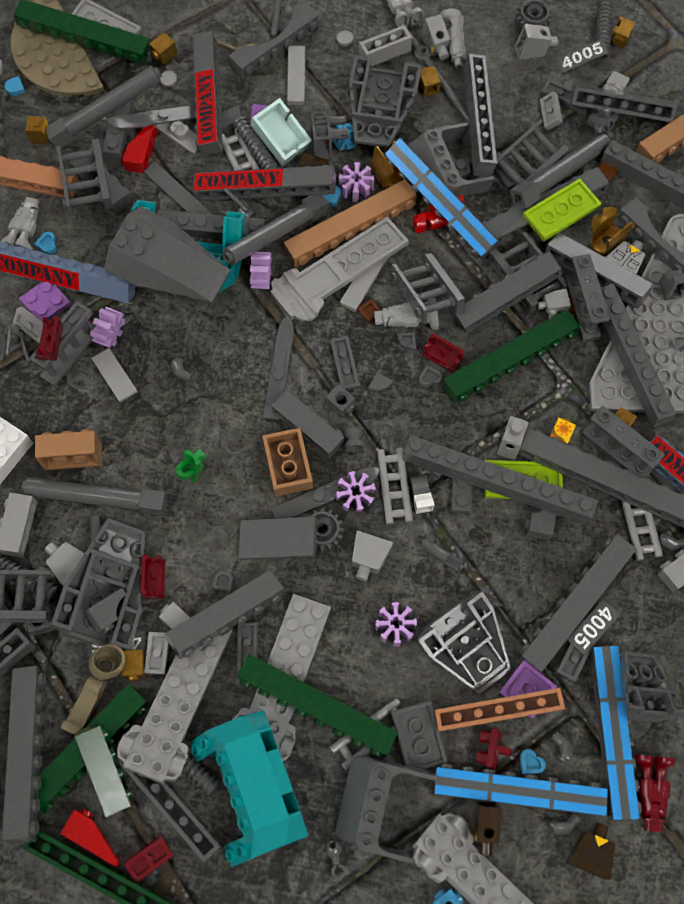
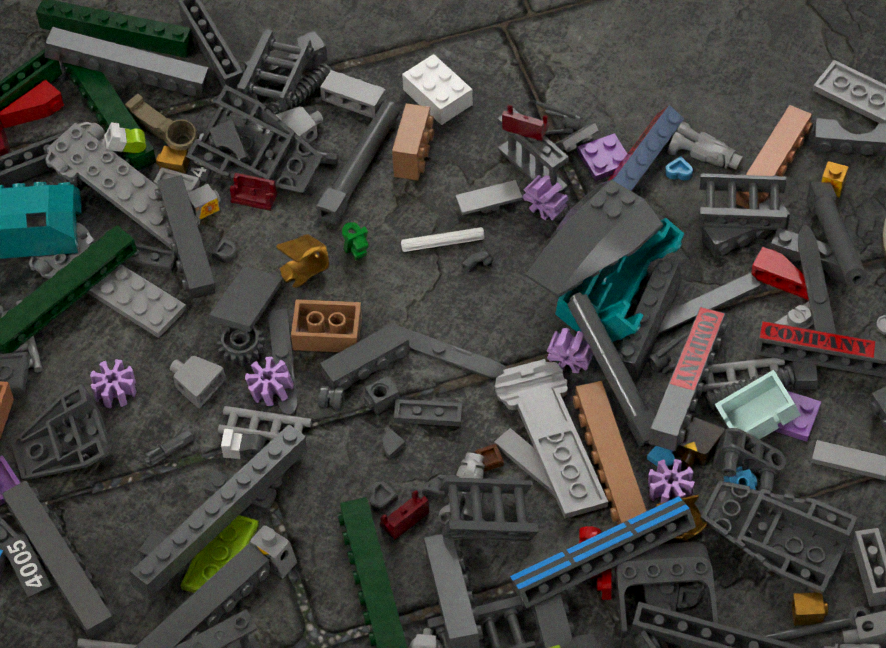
camera: 110 degrees right, 15 degrees down
(102, 769) = (97, 108): brick -> none
(130, 709) = (124, 139): none -> leg
(165, 403) = (442, 239): none -> white axle
(222, 503) = (305, 259): none -> pearl gold piece
(563, 430) = (258, 605): brick -> none

